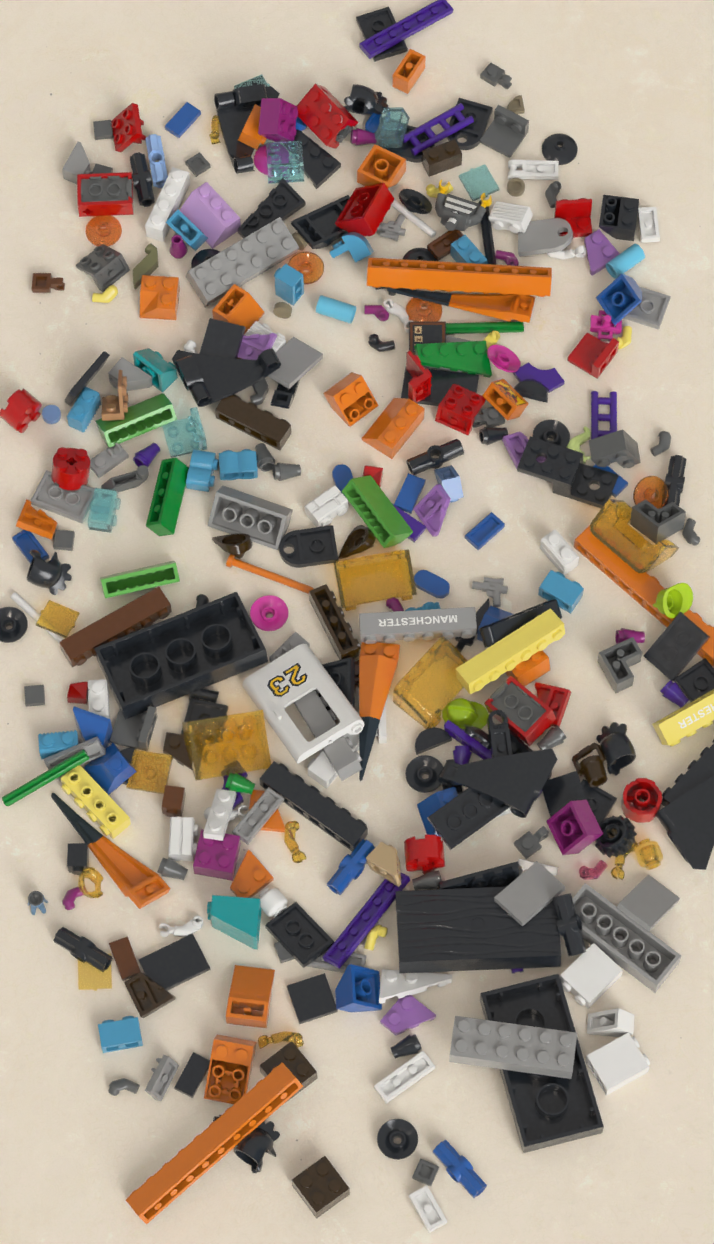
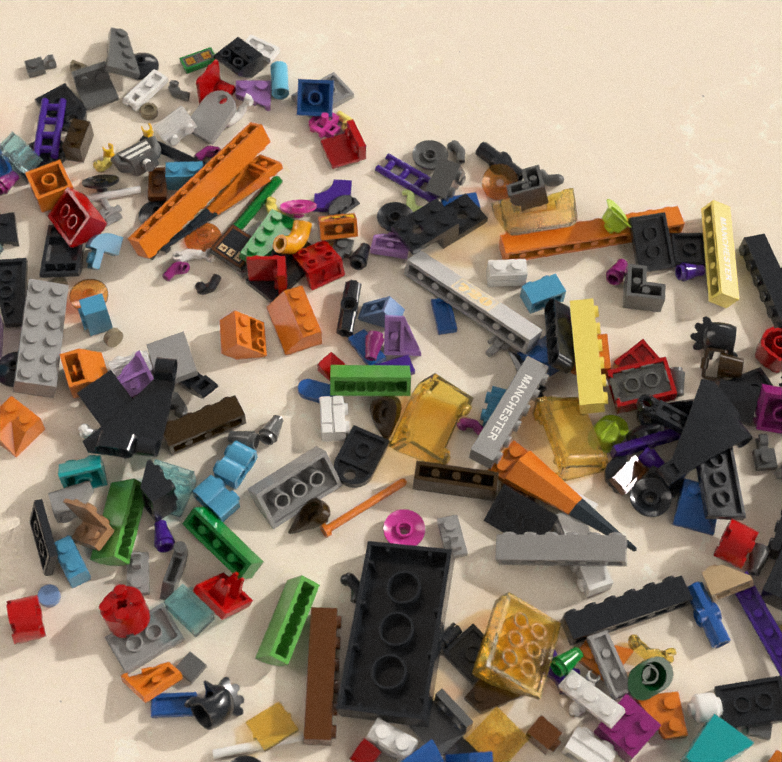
camera: 60 degrees left, 5 degrees down
(127, 523) = (223, 594): none -> red plate
(170, 425) = (157, 492): none -> black slope
(265, 848) = (650, 678): none -> dark green piece
(289, 680) = (492, 556): white piece -> none
(336, 309) = (148, 297): medium azure pin -> none
(411, 494) = (373, 344): none -> magenta cone
(431, 584) = (469, 381): blue tile -> none
(433, 747) = (628, 475): none -> tile
(464, 377) = (295, 240): none -> light orange cylinder
(478, 182) = (121, 132): clear light blue piece -> none
(507, 542) = (473, 302): none -> light grey brick
(548, 128) = (121, 55): none -> dark grey wing
(598, 185) = (197, 60): none -> tile
(638, 417) = (427, 154): none -> dark grey dish

